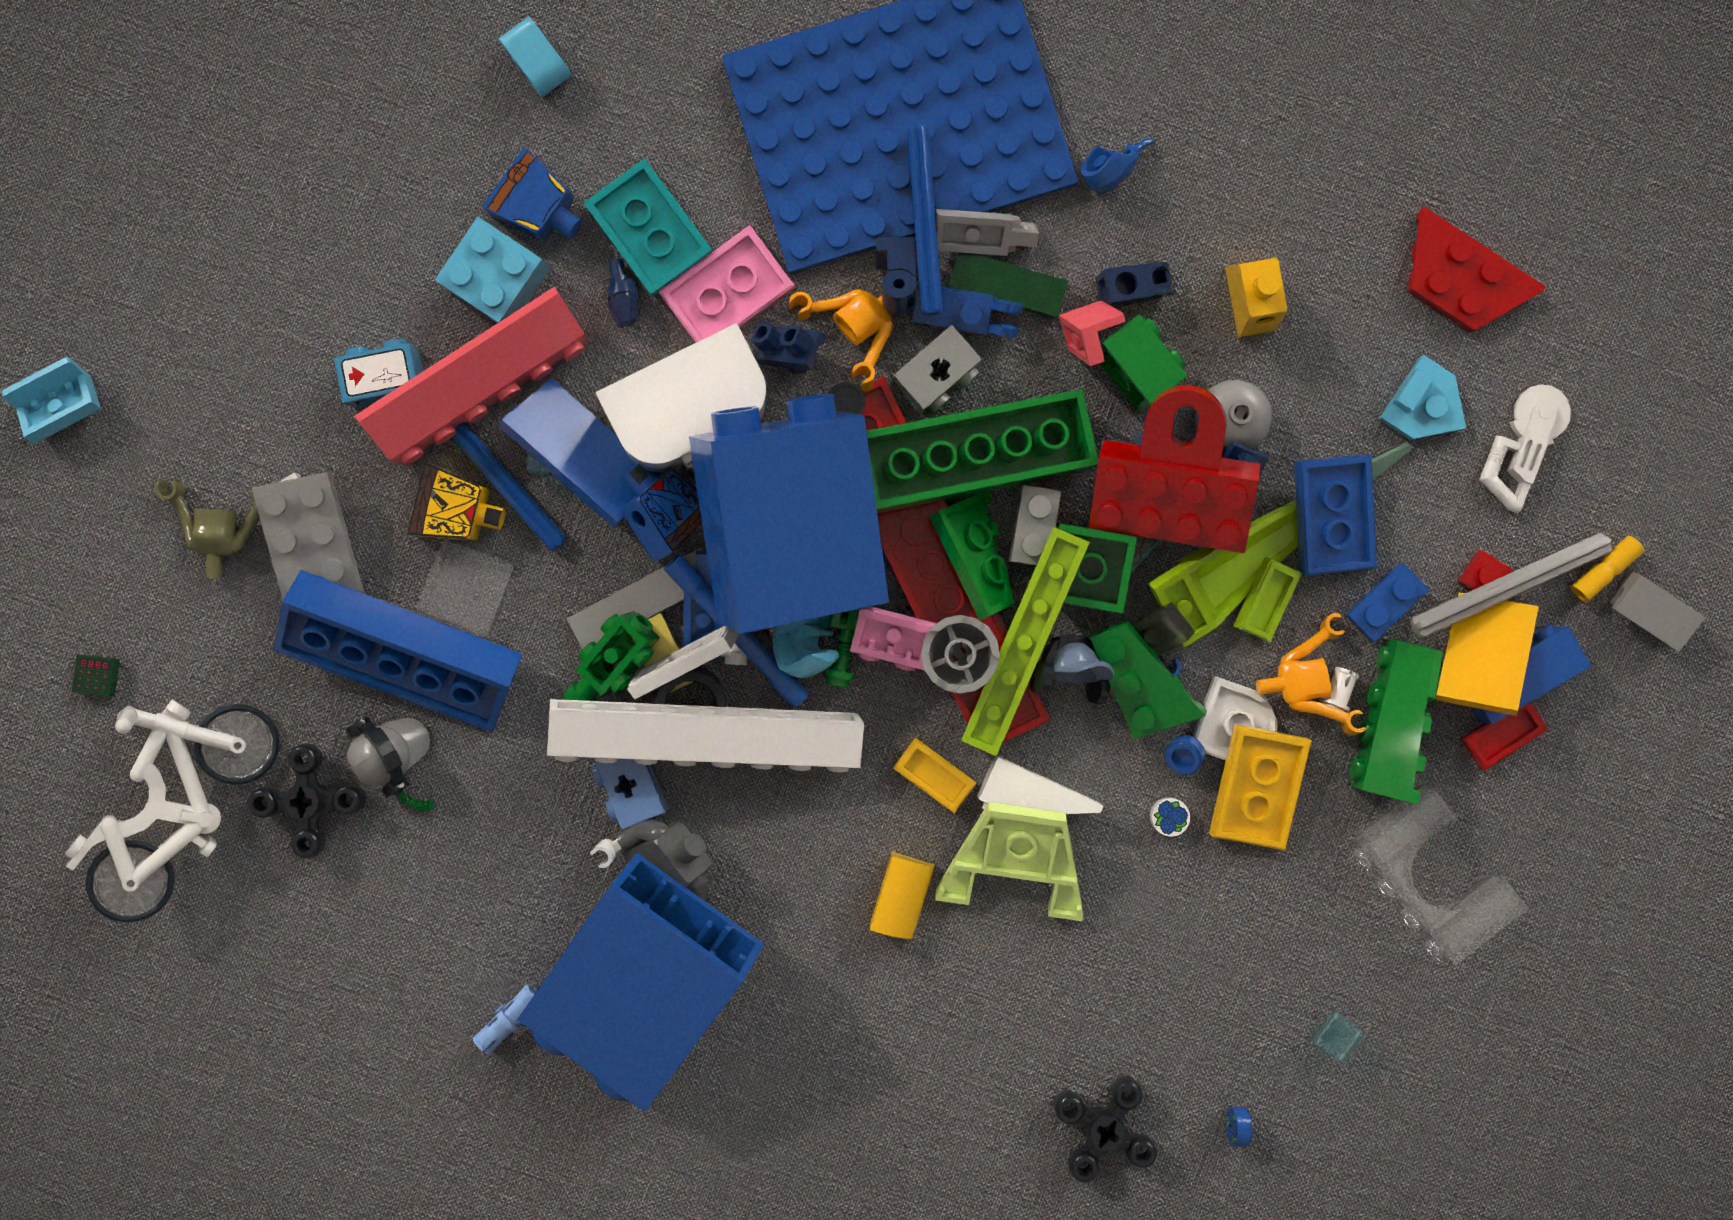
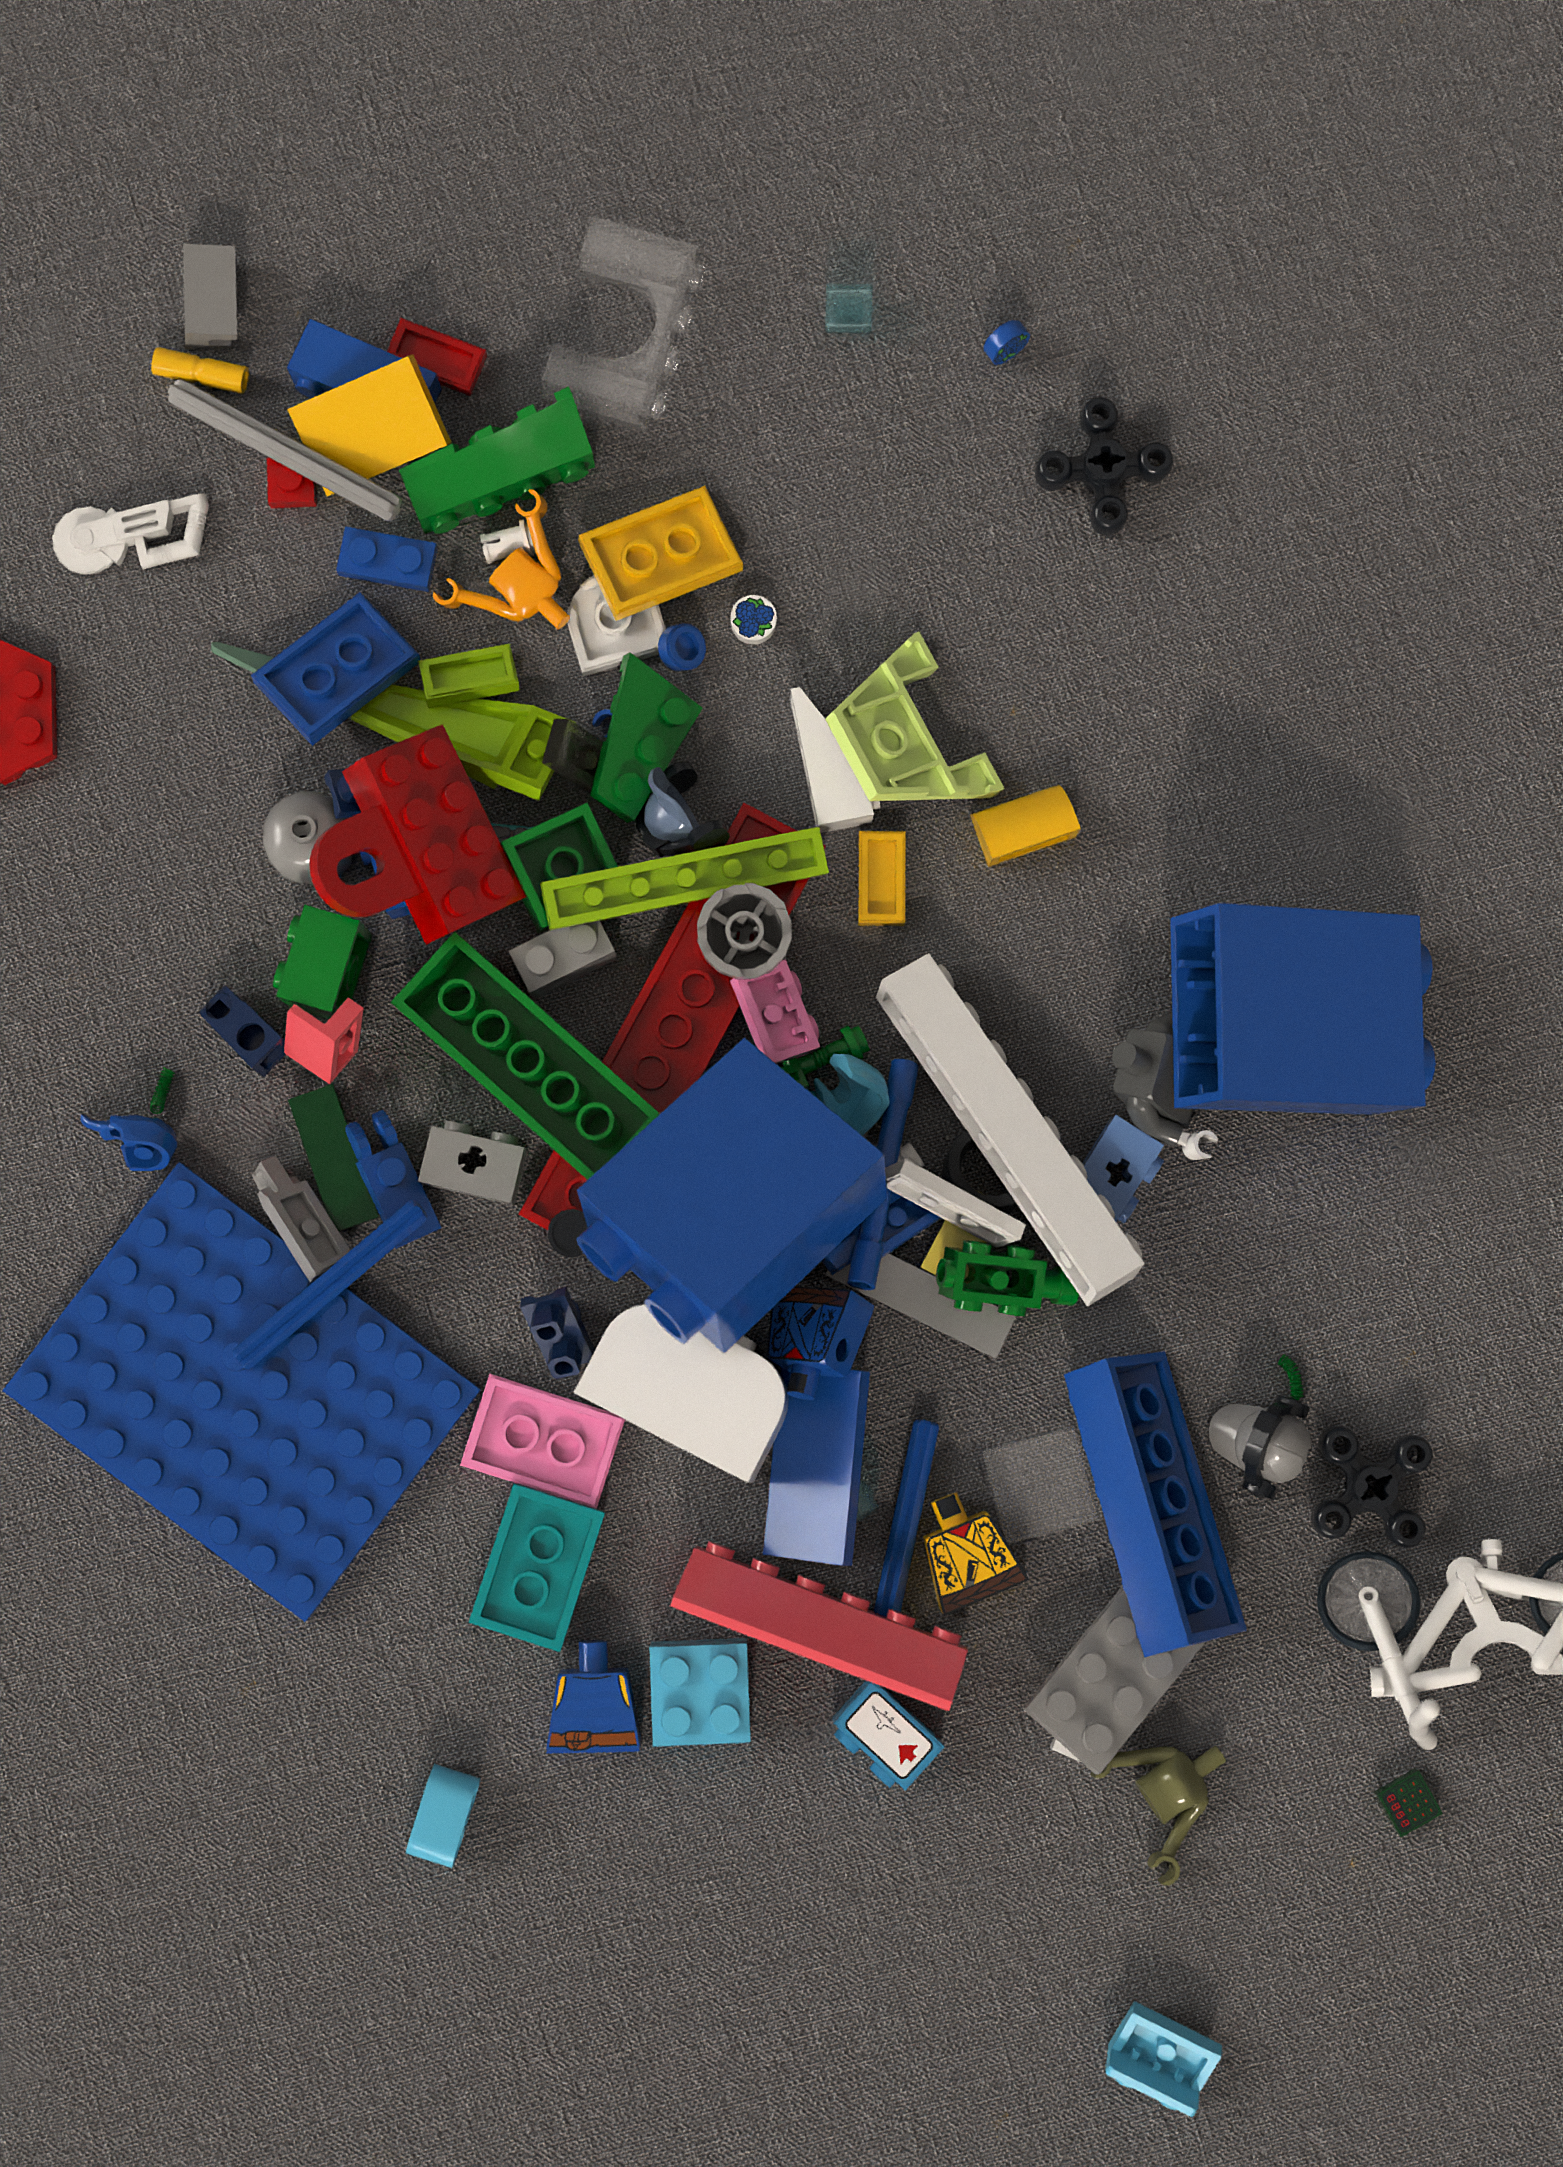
camera: 135 degrees left, 5 degrees down
(504, 1021) = (1436, 1125): light blue pin -> none
(622, 295) = (626, 1543): dark blue piece -> none
(858, 319) = (480, 1281): light orange piece -> none
(899, 283) = (391, 1279): dark blue leg -> none
(972, 549) = (630, 999): green wing -> none
(1129, 200) = (161, 1093): none -> green leg
(1256, 294) = (169, 900): yellow torso -> none
(1425, 402) = (158, 660): medium azure plate -> none

